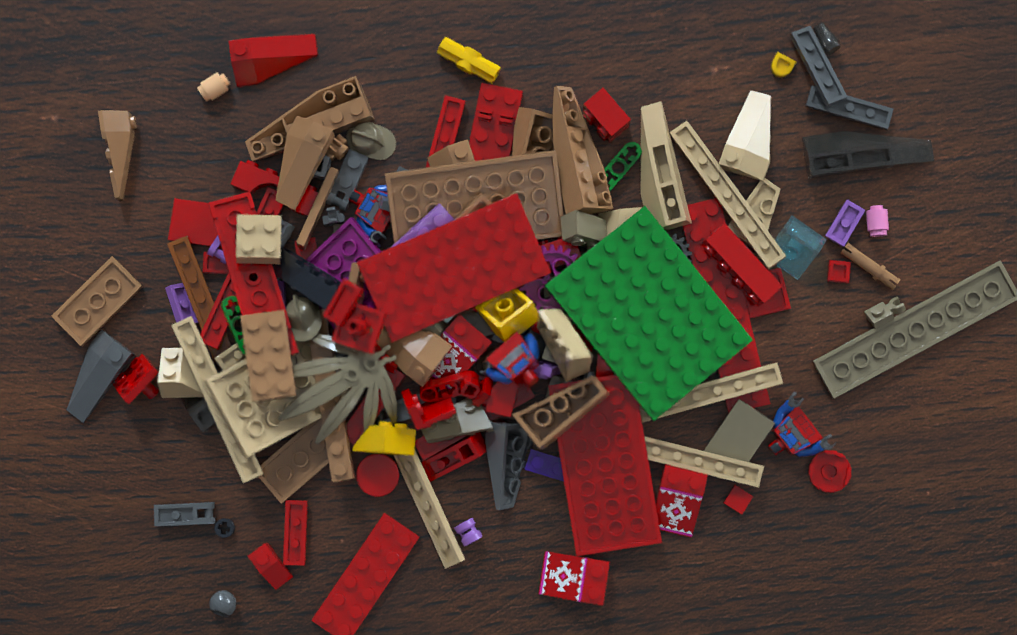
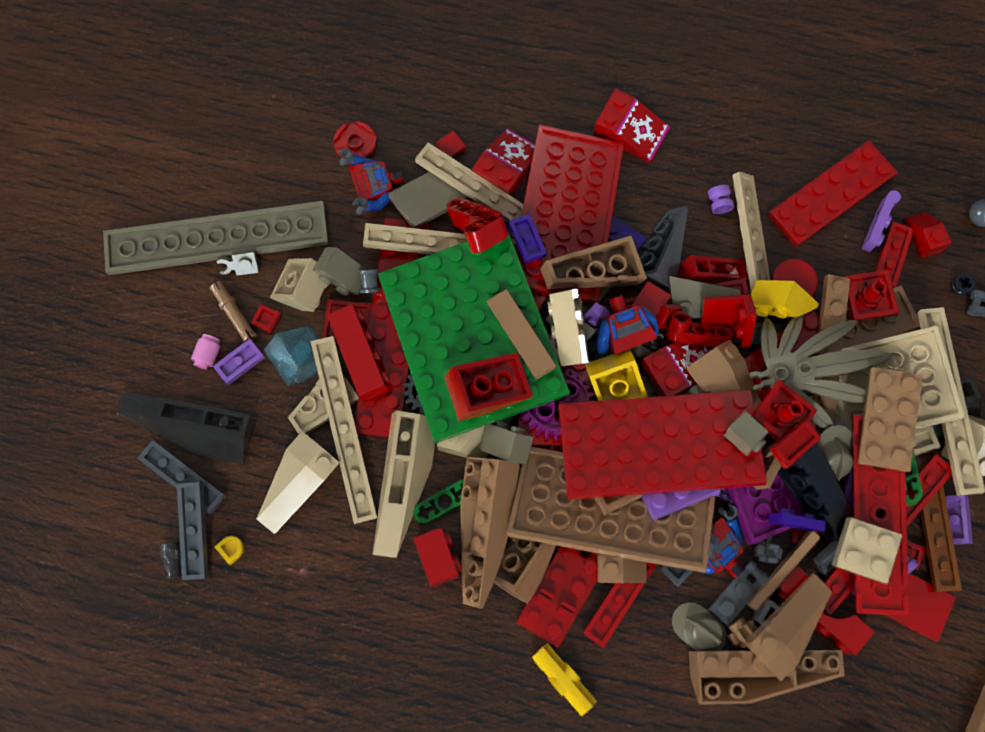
camera: 165 degrees left, 10 degrees down
(303, 495) = (877, 284): none -> red plate
(314, 564) = (881, 221): none -> medium lavender plate
(326, 247) = (804, 522): none -> dark purple plate
(385, 294) = (747, 434): none -> dark tan brick
(604, 320) = (521, 334): none -> medium nougat tile
(615, 263) = (487, 385): none -> red slope
(631, 417) = (527, 238): none -> dark purple plate
(668, 409) = (480, 224): none -> red beam
(758, 333) = (369, 280): none -> dark grey bush
(787, 333) = (339, 270): none -> dark tan brick
(820, 312) = (299, 285): none -> tan slope

